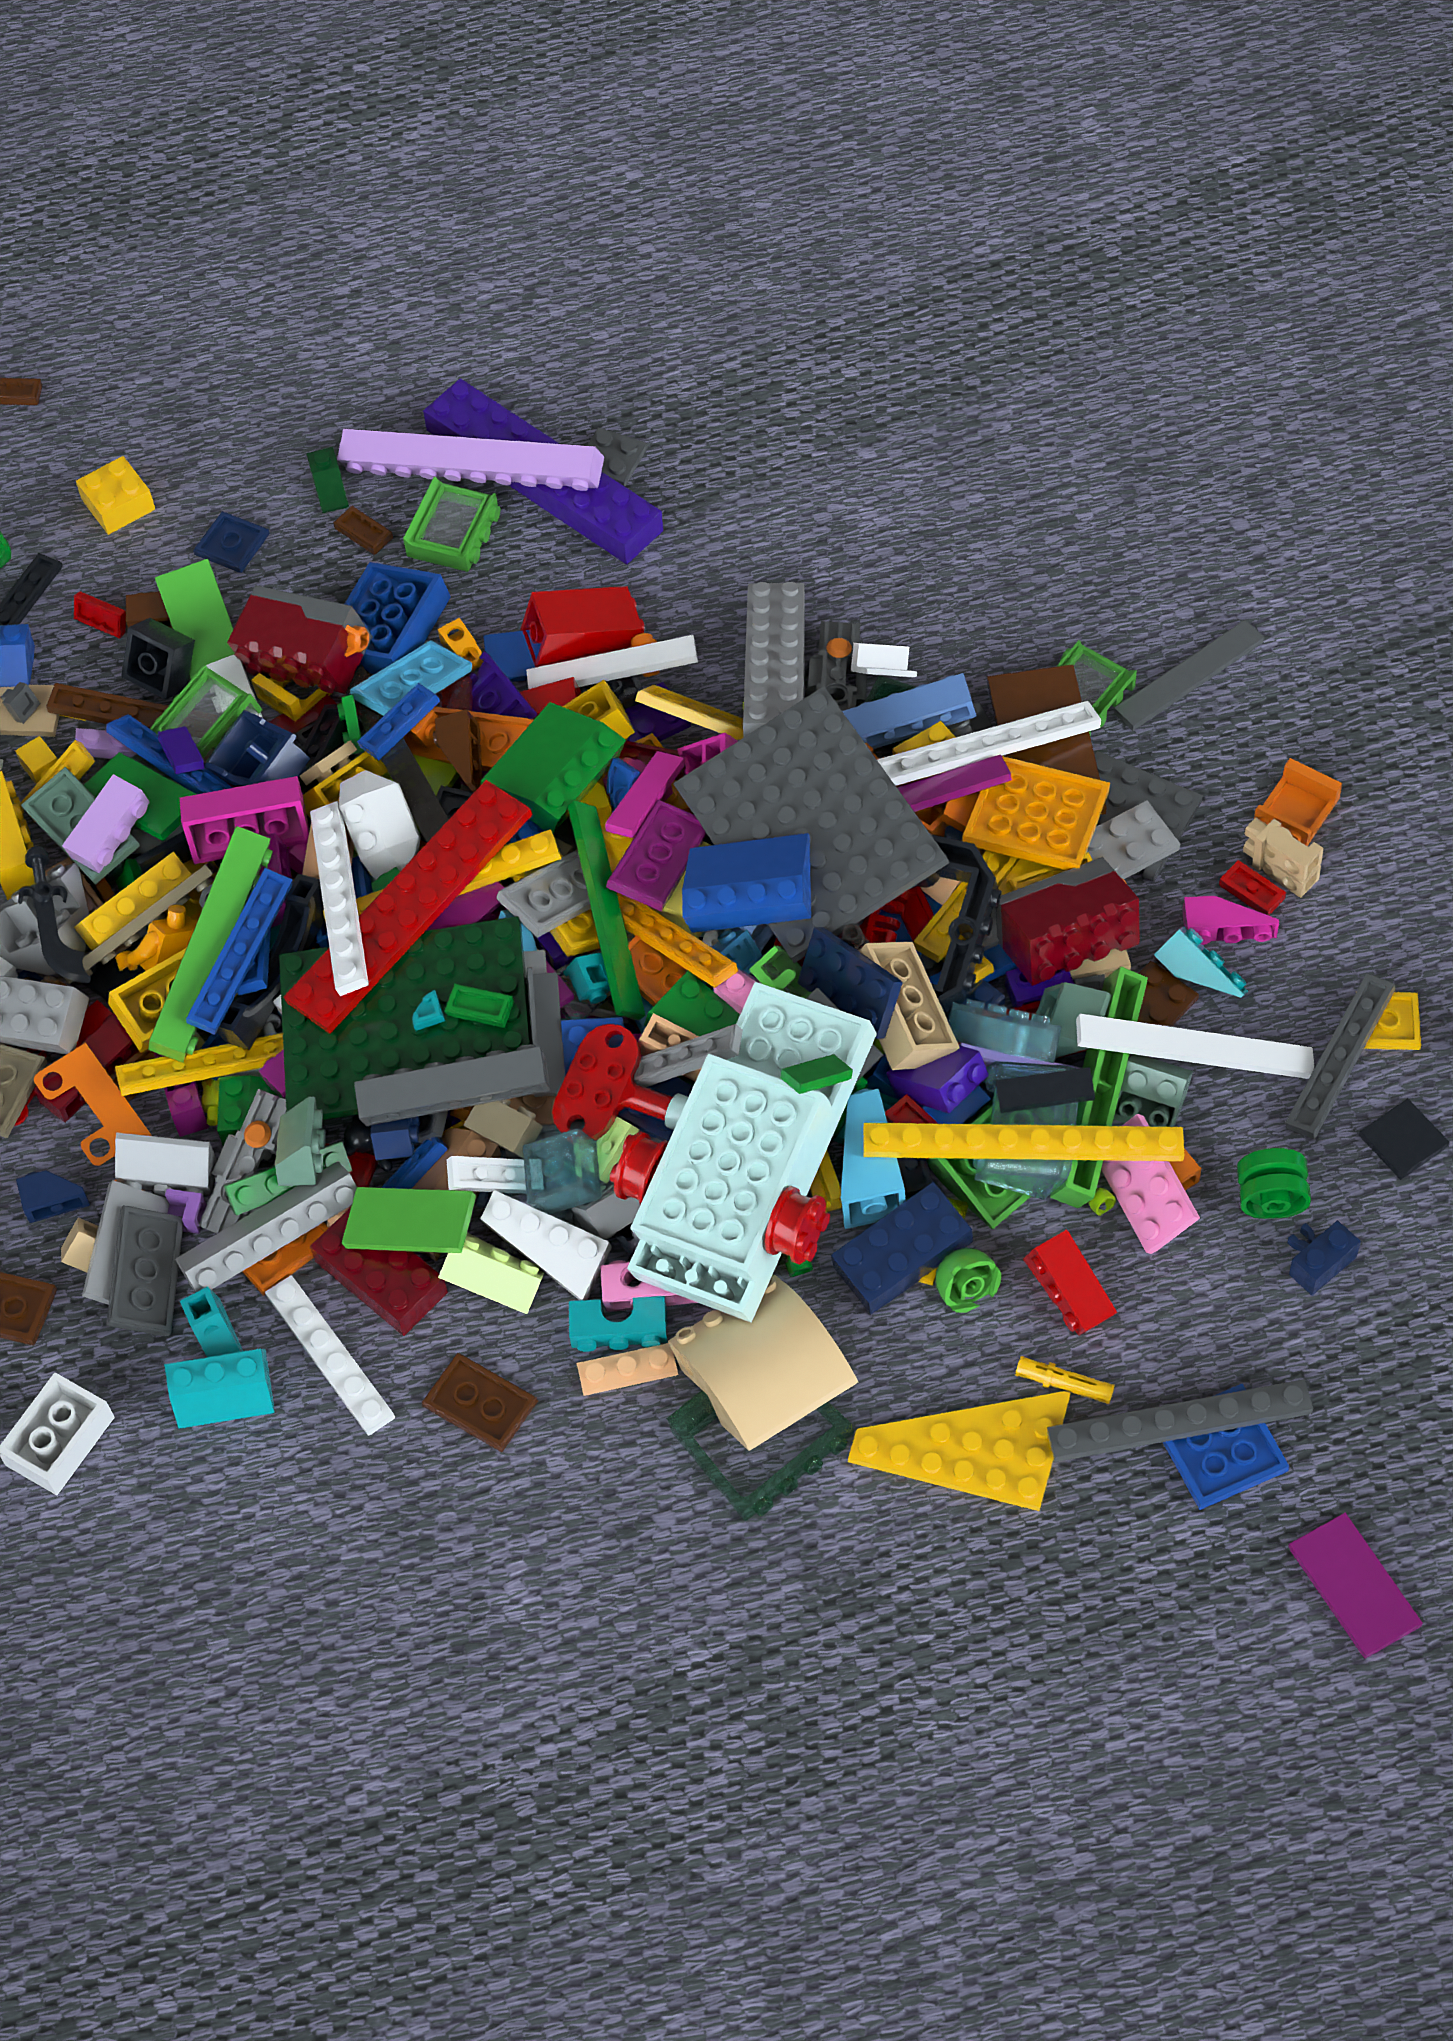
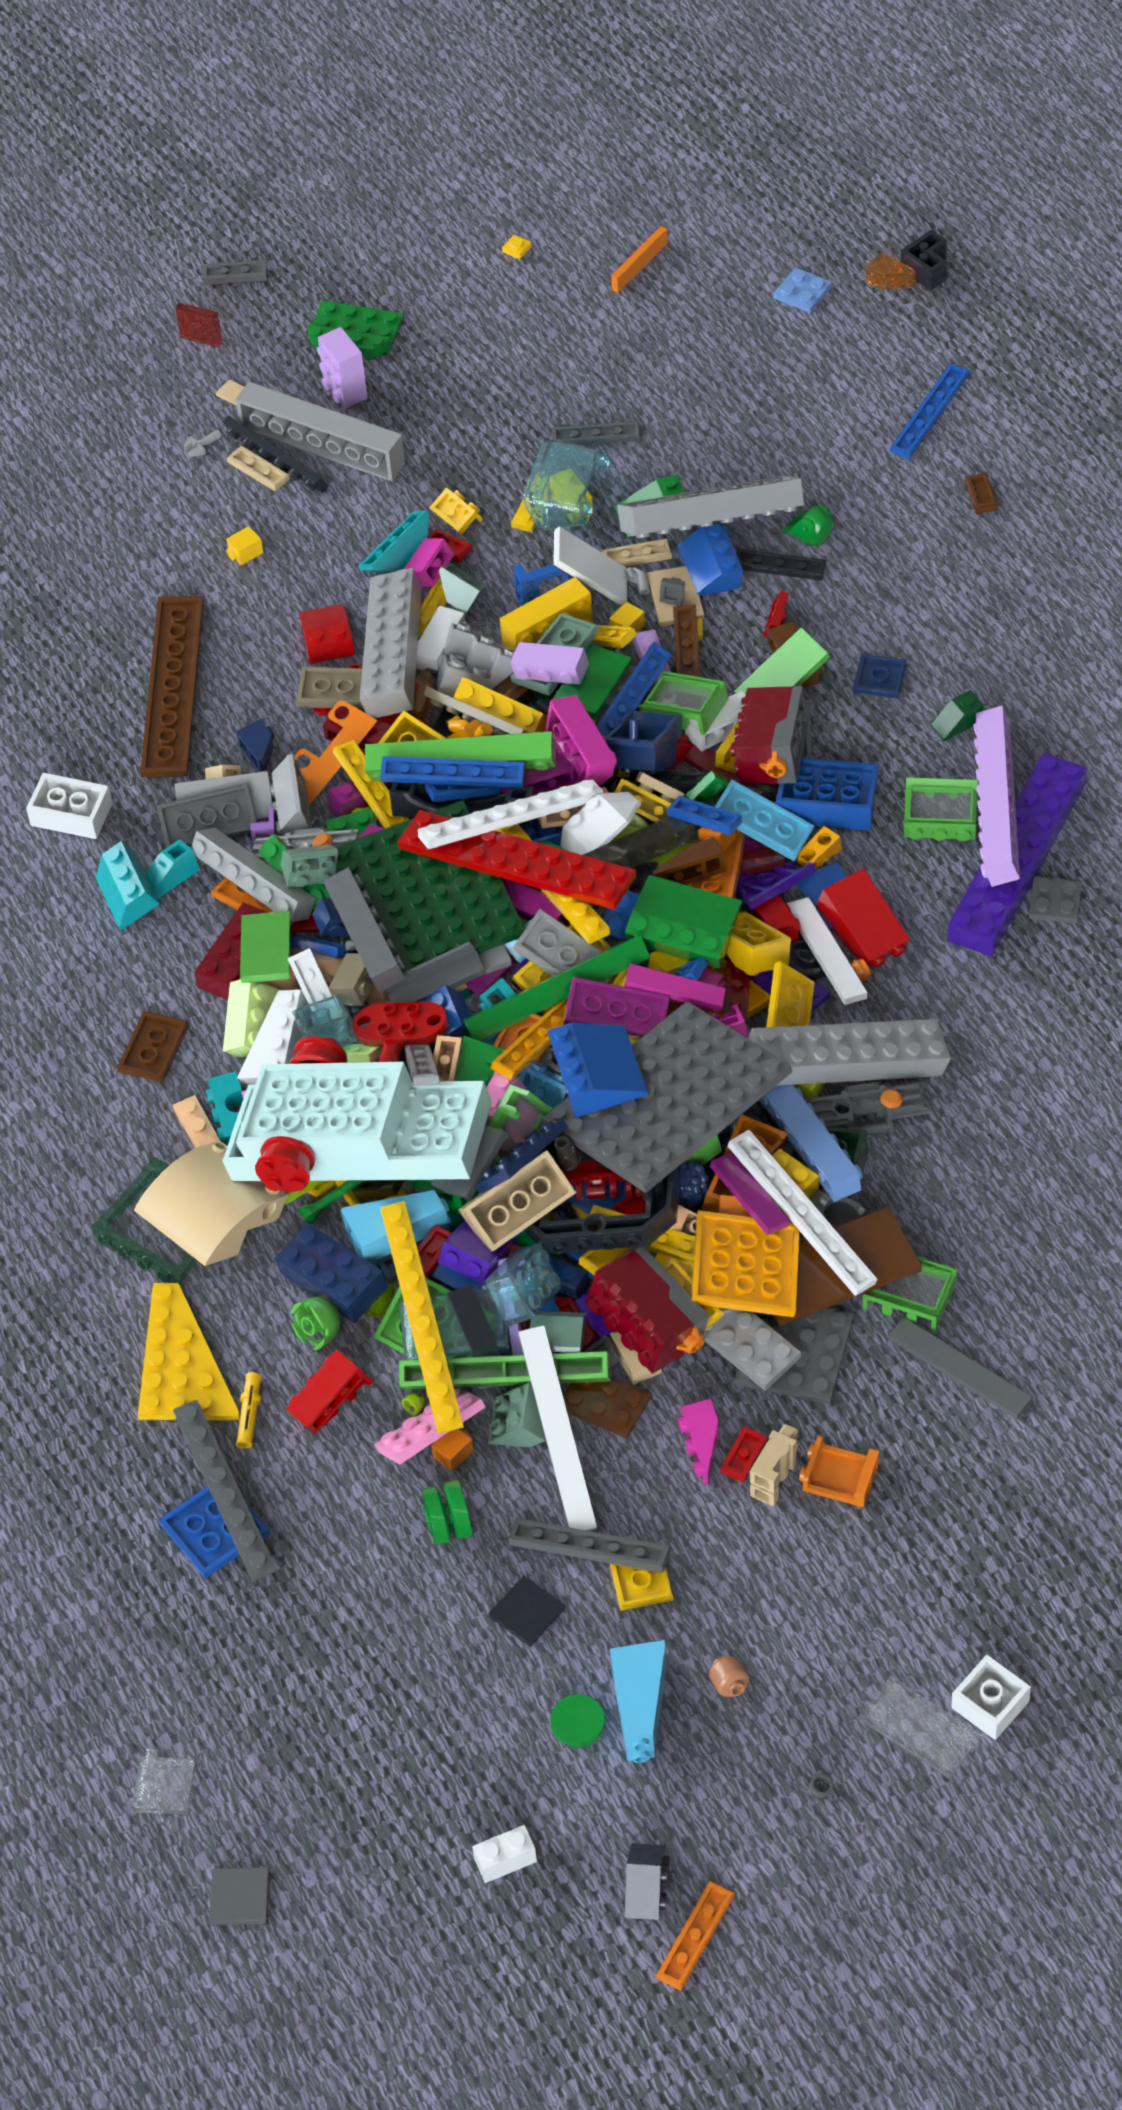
camera: 75 degrees right, 5 degrees down
(58, 956) = (431, 677): black sword -> none
(115, 495) = (894, 587): yellow brick -> none
(157, 658) = (737, 657): black brick -> none
(181, 750) = (639, 691): dark purple tile -> none
(330, 1355) = (170, 947): white plate -> none
(363, 530) = (918, 755): reddish brown plate -> none
(428, 1012) = (427, 899): teal tile -> none
(479, 1005) = (437, 926): green tile -> none
(816, 1074) = (398, 1132): green tile -> none
(881, 660) = (888, 1134): white panel -> none
(1193, 962) = (649, 1426): slope -> none
(1322, 1256) = (395, 1565): dark blue brick -> none
(1355, 1585) = (116, 1641): magenta tile -> none

